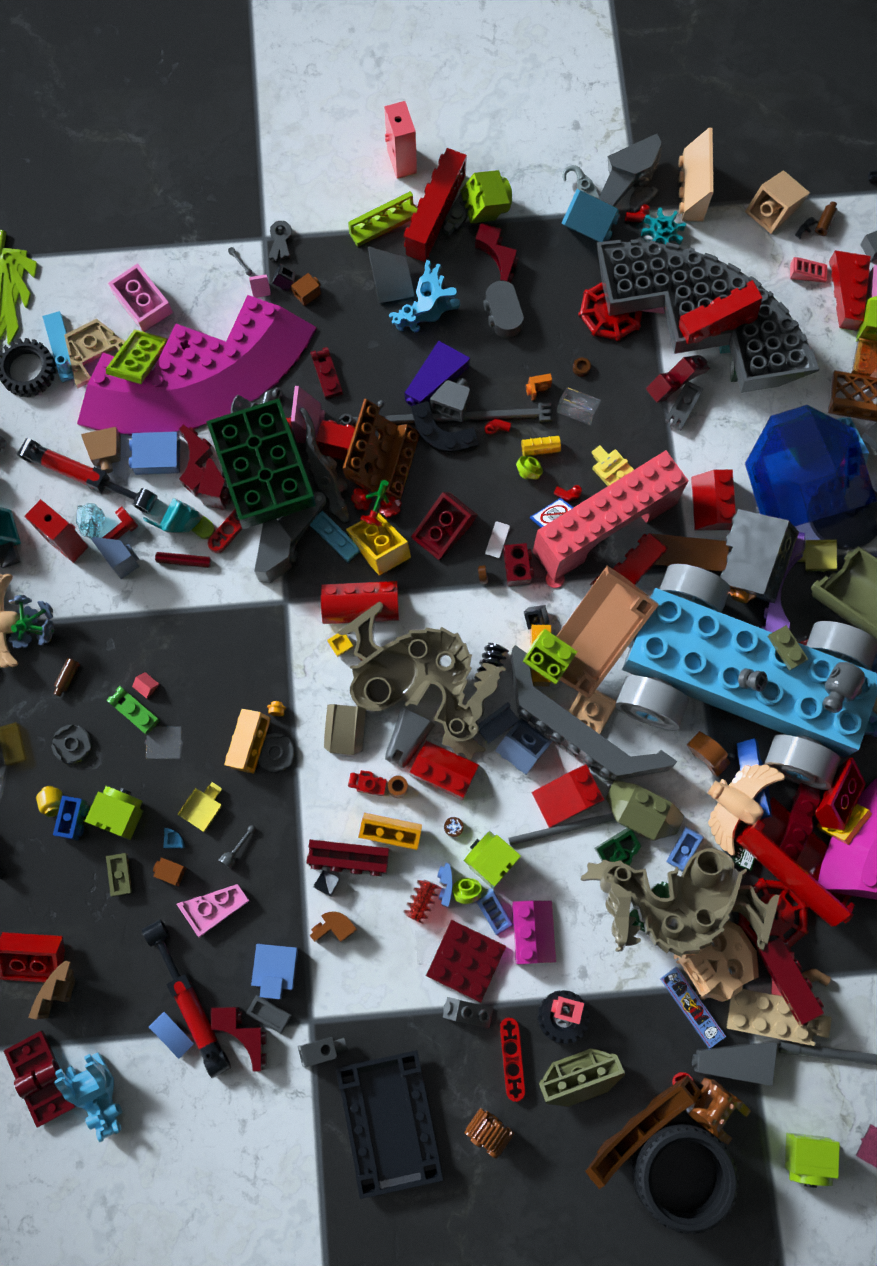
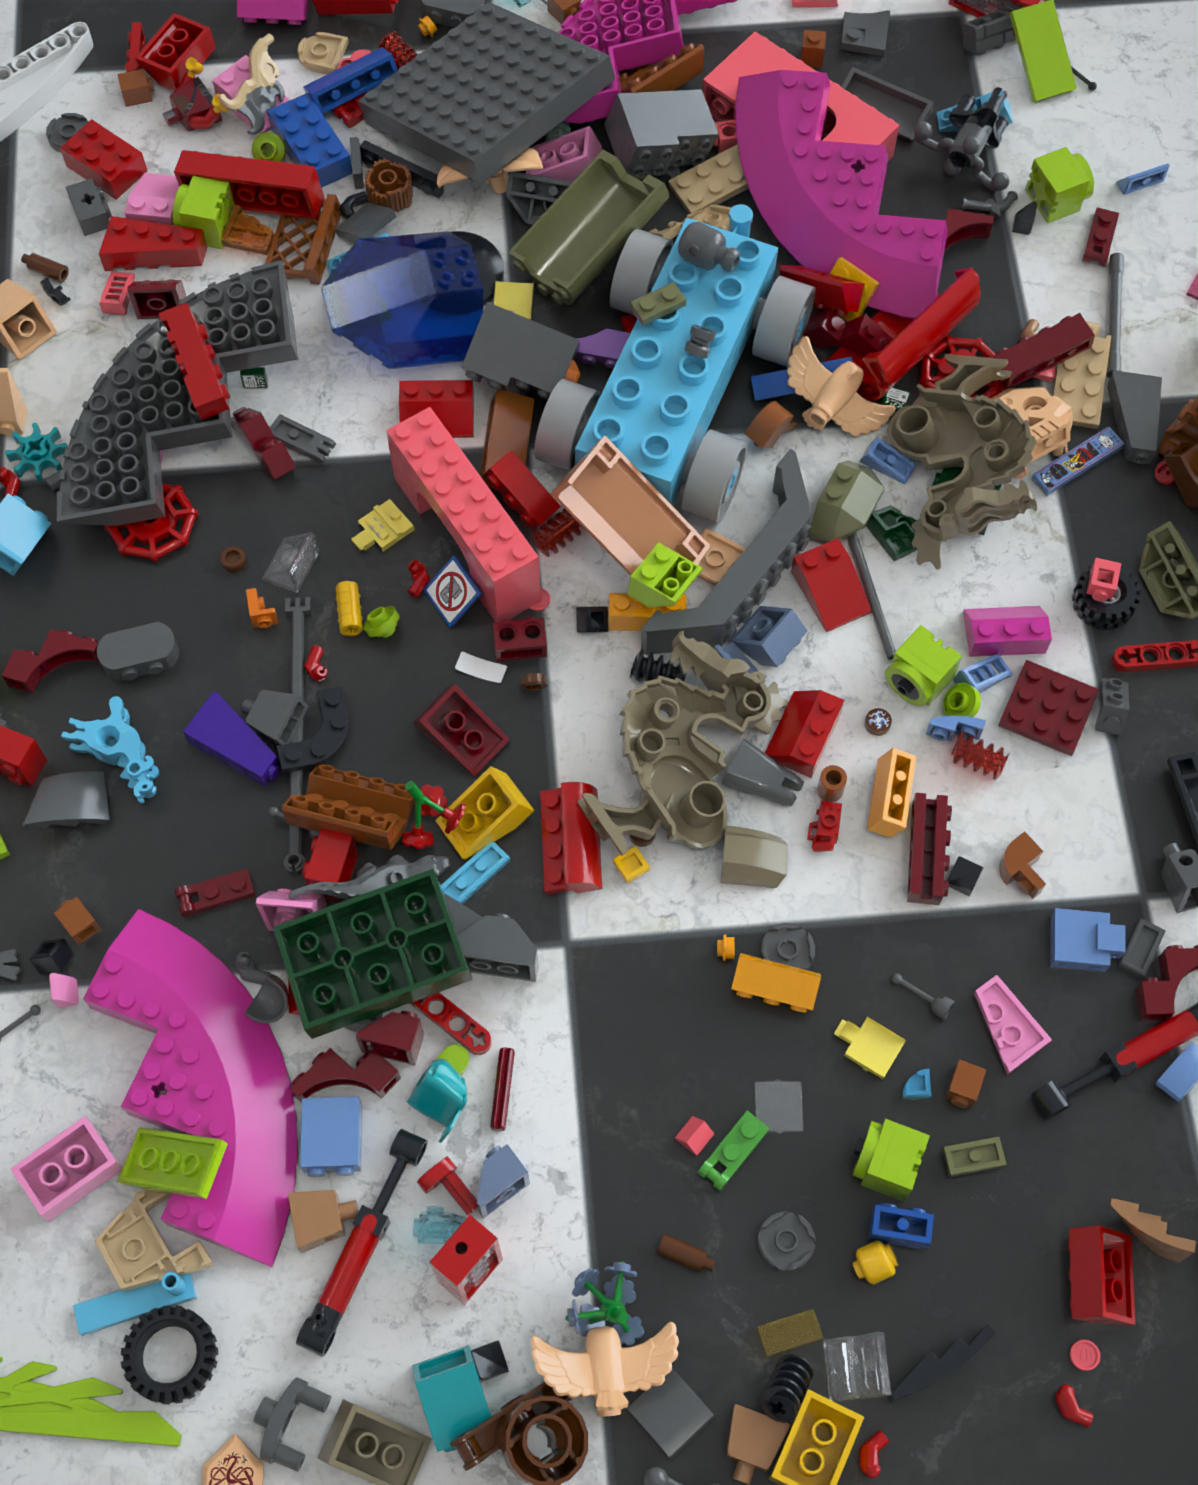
camera: 90 degrees left, 10 degrees down
(802, 296) = (154, 297): none -> dark red slope

